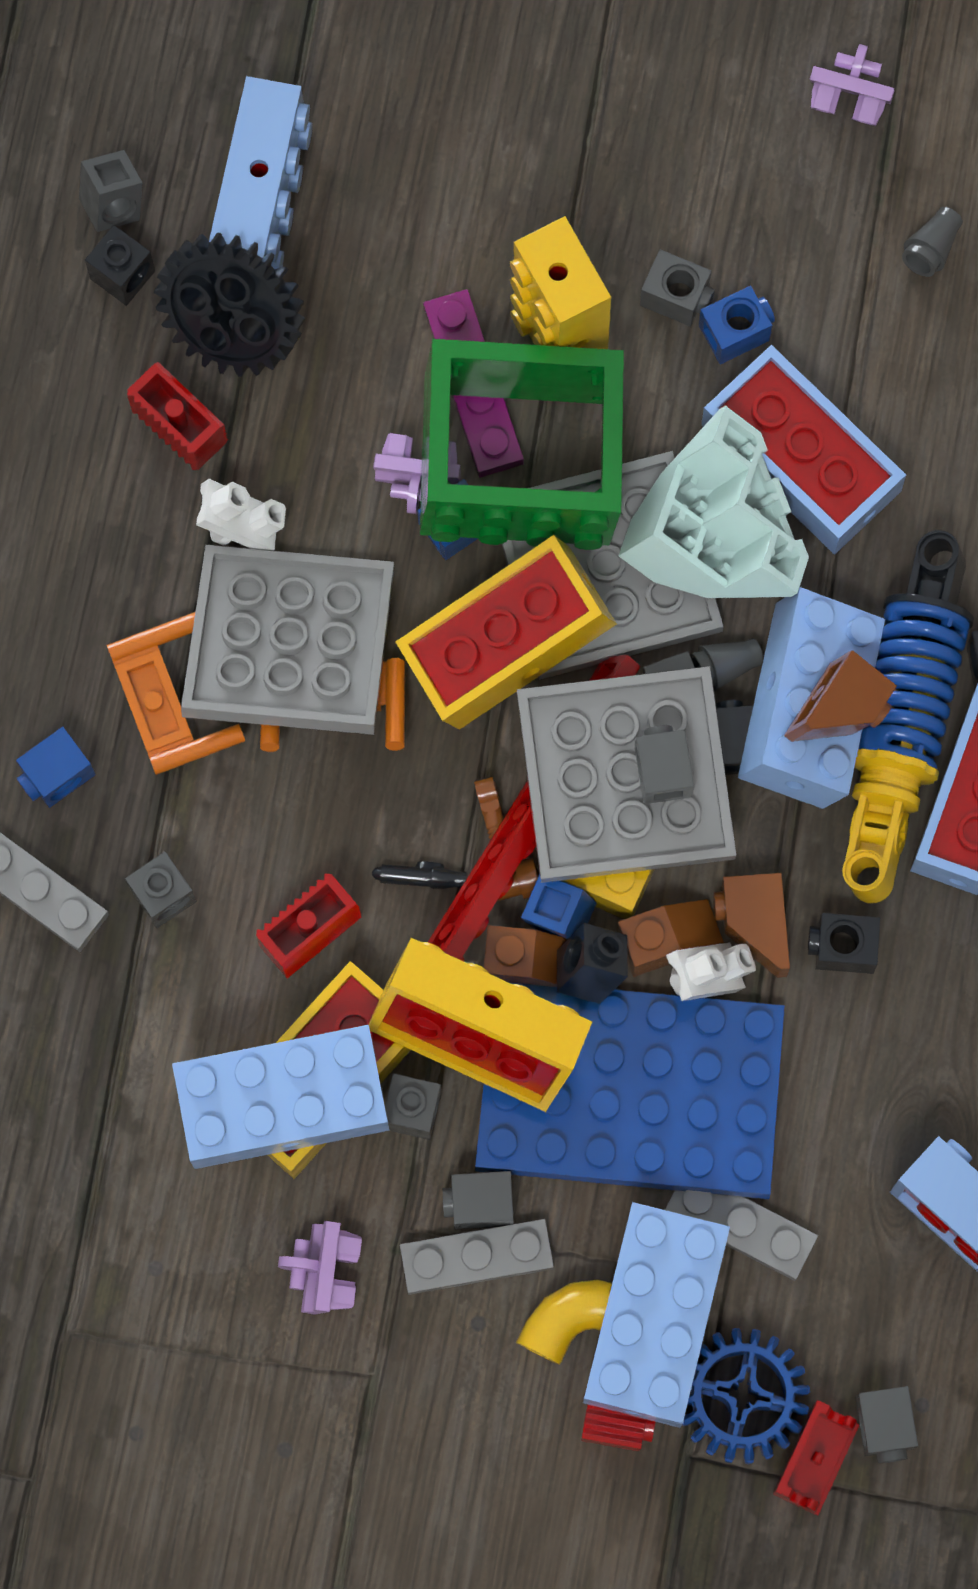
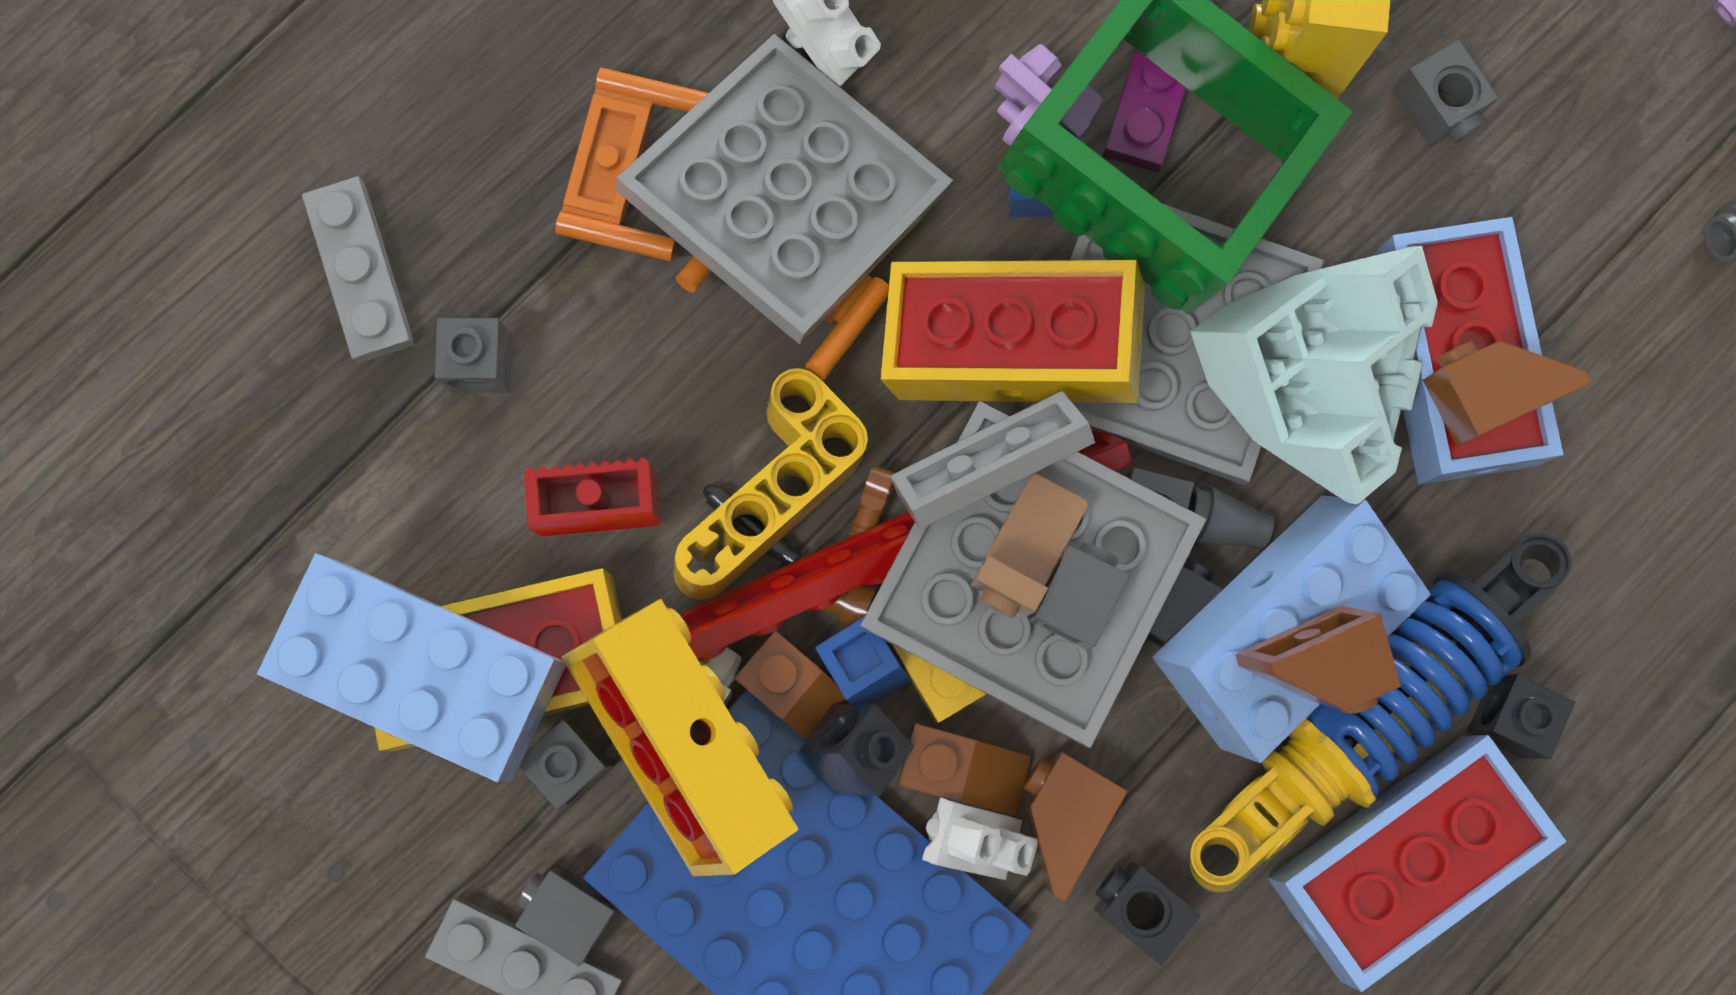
camera: 30 degrees right, 5 degrees up
(54, 768) = (459, 157): blue brick -> none
(314, 1268) = (339, 891): lavender hips -> none
(419, 848) = (763, 496): none -> yellow beam
(551, 719) = (992, 459): none -> light grey plate
(611, 757) = (1028, 547): none -> medium nougat bracket
(729, 342) = (1461, 186): blue brick -> none
(833, 461) = (1495, 386): none -> dark orange slope

